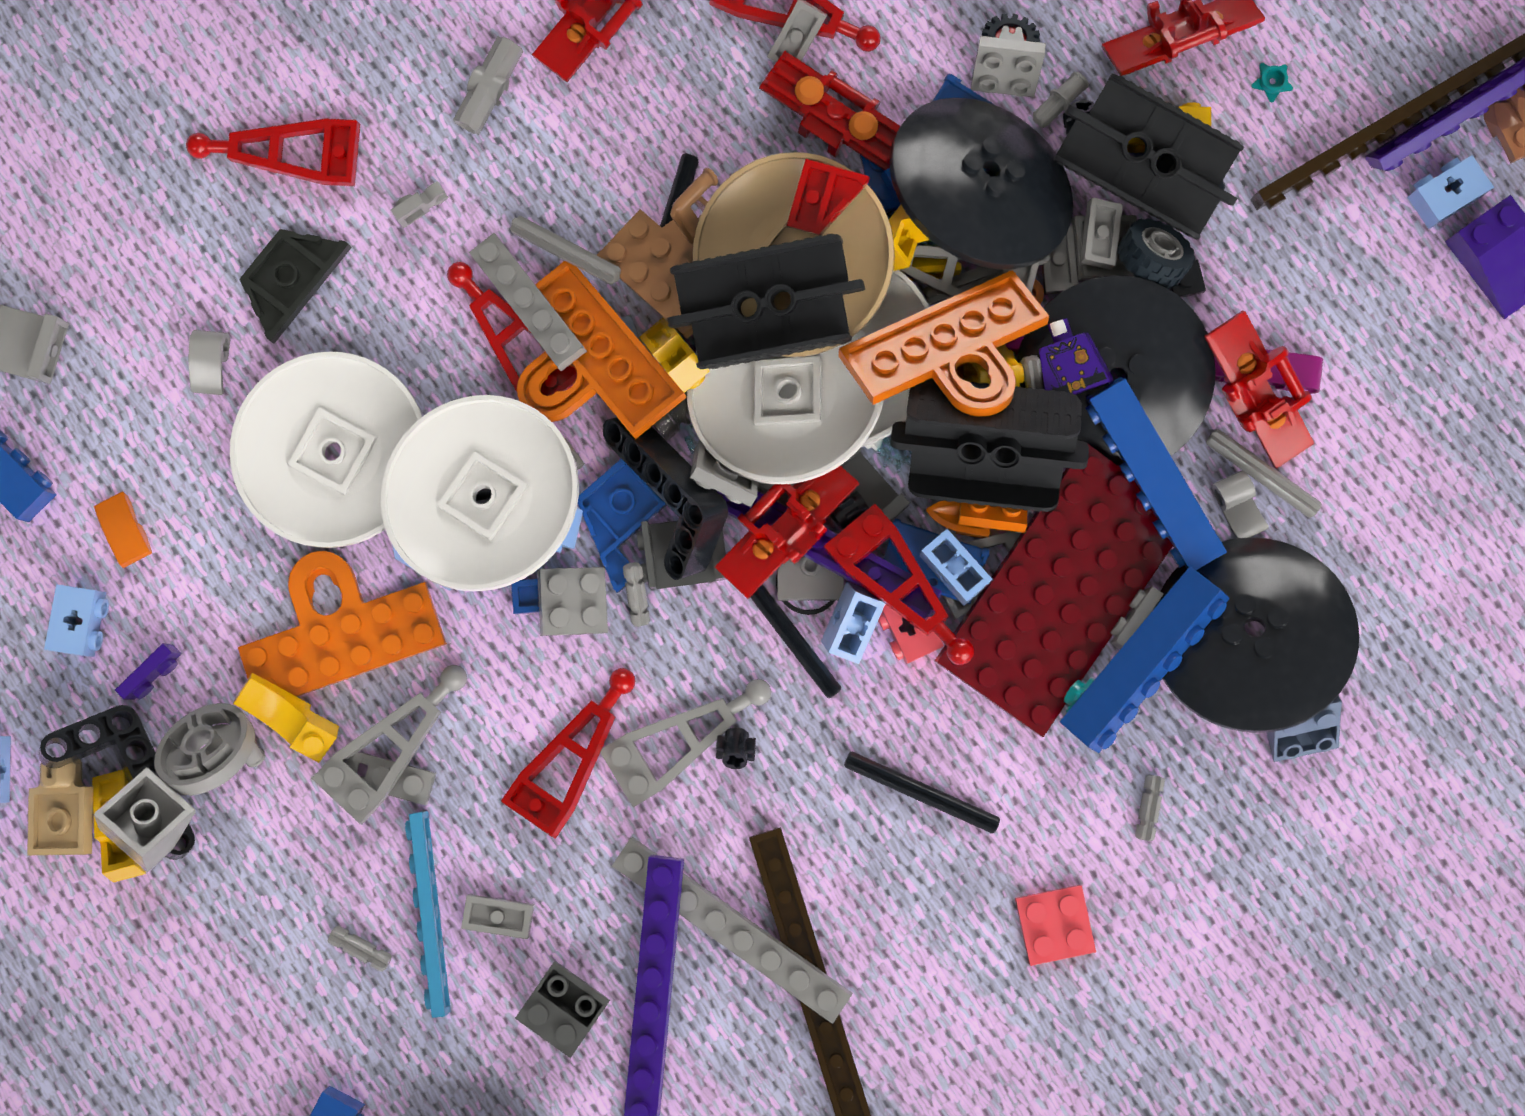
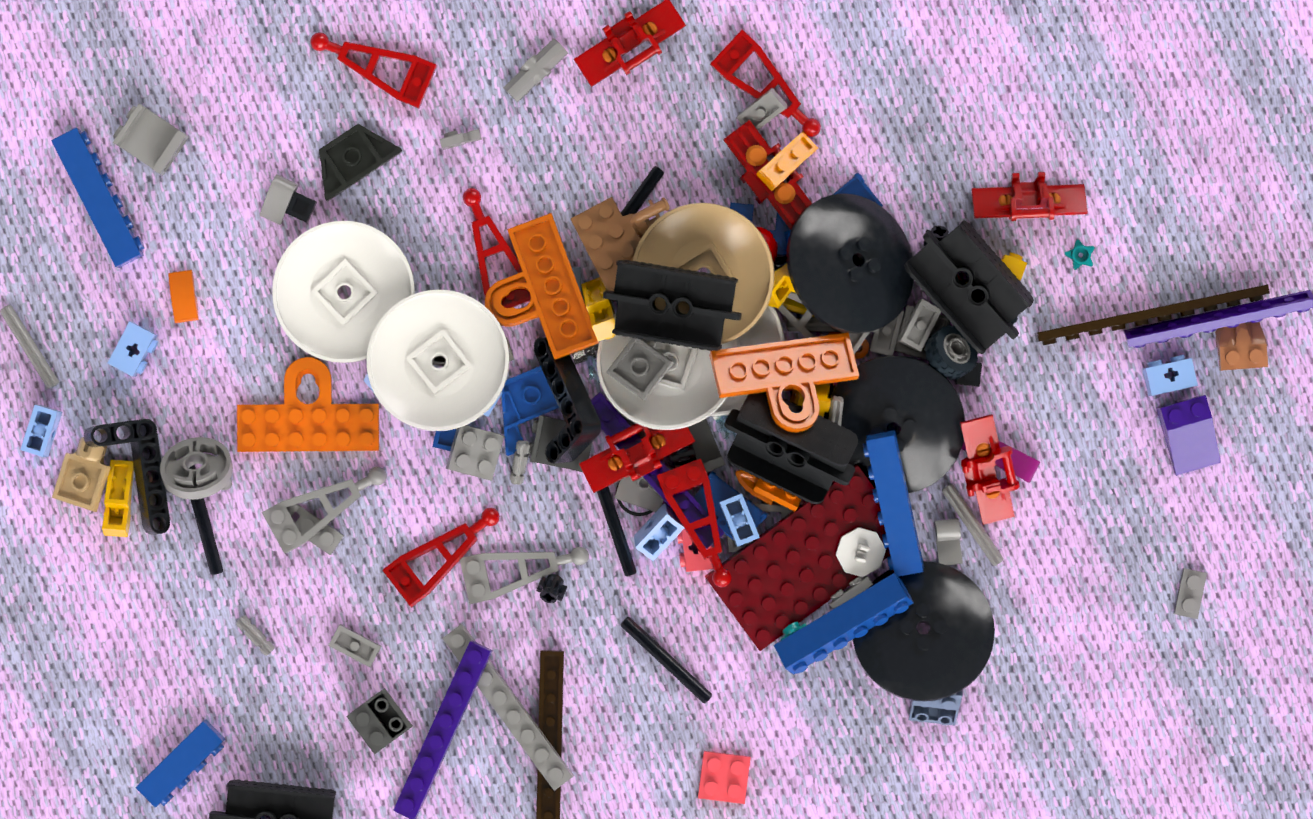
camera: 10 degrees right, 5 degrees up
(139, 682) = (163, 406): dark purple plate -> none
(145, 819) = (145, 503): light grey slope -> none
(240, 362) = (301, 207): none -> black plate
(251, 833) = (206, 535): none -> black axle
(288, 716) = (258, 465): yellow slope -> none
(429, 928) = (306, 637): dark azure plate -> none
(527, 302) = (512, 235): light grey plate -> none
(565, 250) = (550, 207): light grey axle -> none
(713, 475) = (599, 404): light grey plate -> none
(751, 407) = (640, 367): none -> light grey plate
(823, 196) = (735, 245): red wing -> none
(851, 85) = (787, 161): none -> light orange tile
(1008, 57) = (902, 177): light grey plate -> none
(1060, 99) = (928, 218): light grey axle -> none
(1072, 361) = (864, 411): dark purple torso -> none
(1130, 557) = (860, 552): none -> white piece
(1149, 807) = (814, 722): light grey axle -> none

